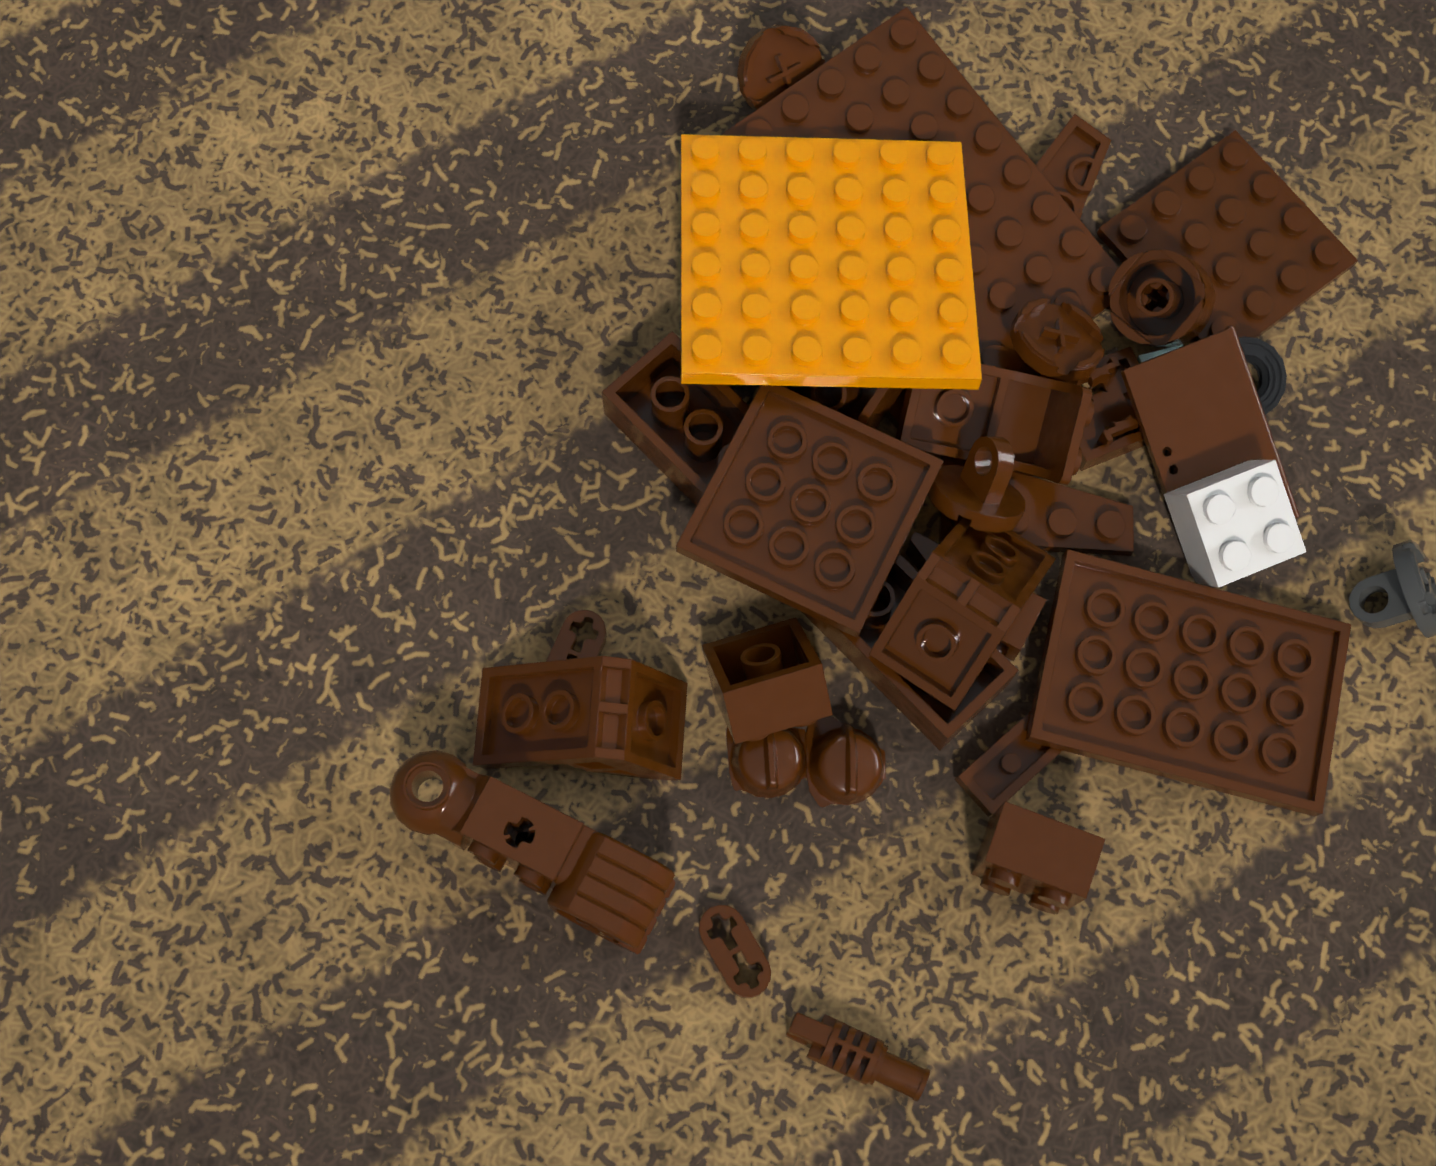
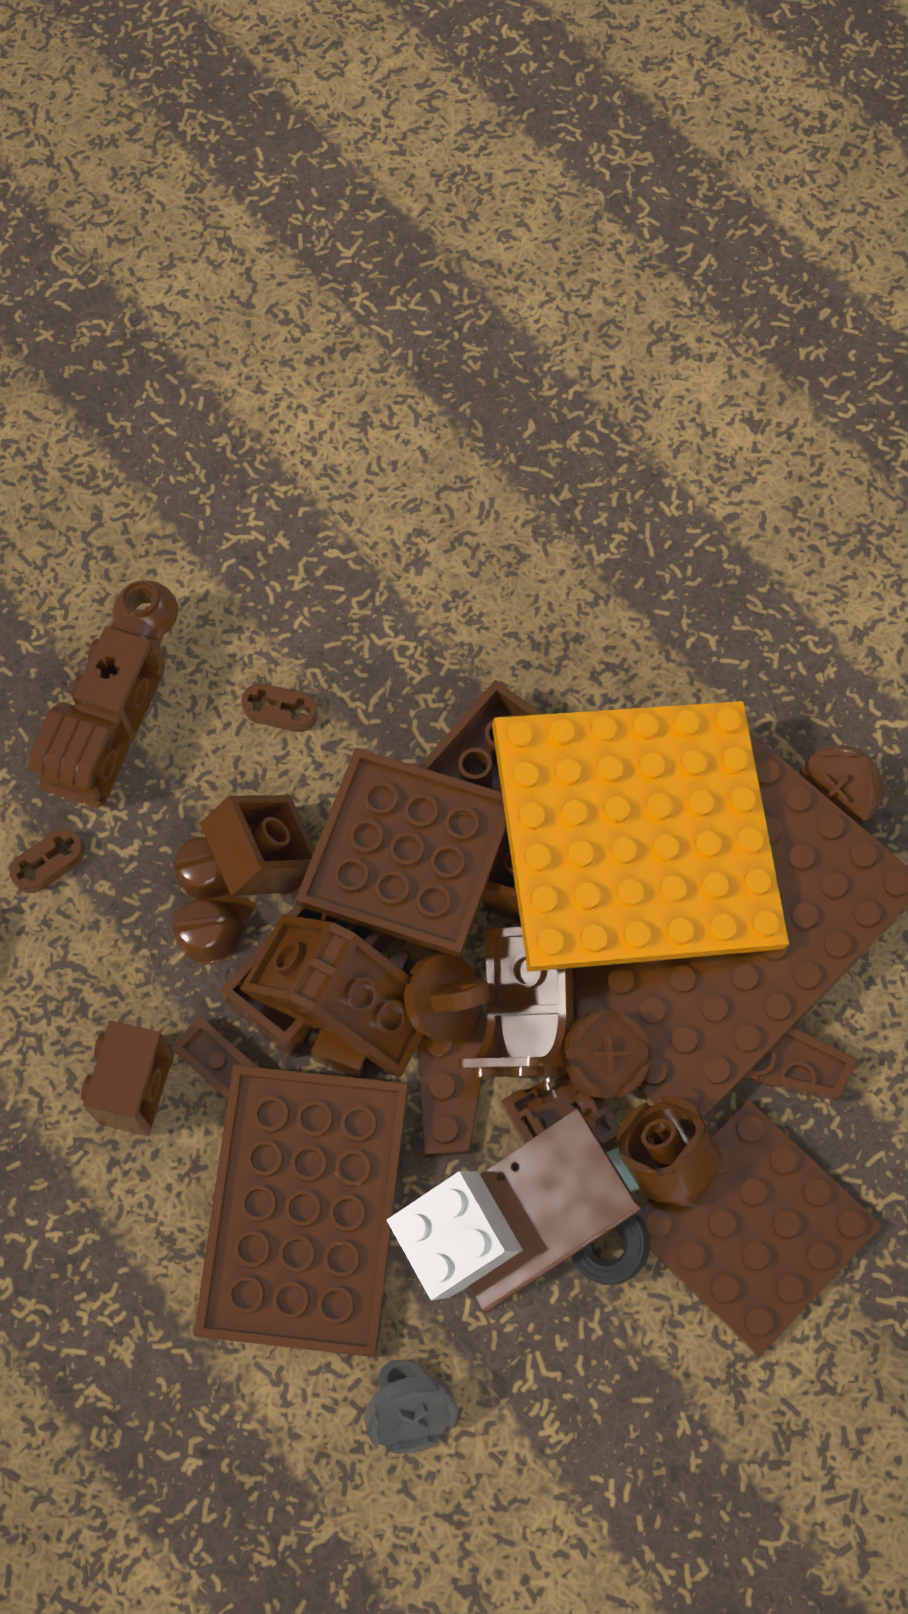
camera: 90 degrees right, 5 degrees down
(582, 714) = (219, 722): reddish brown bracket -> none

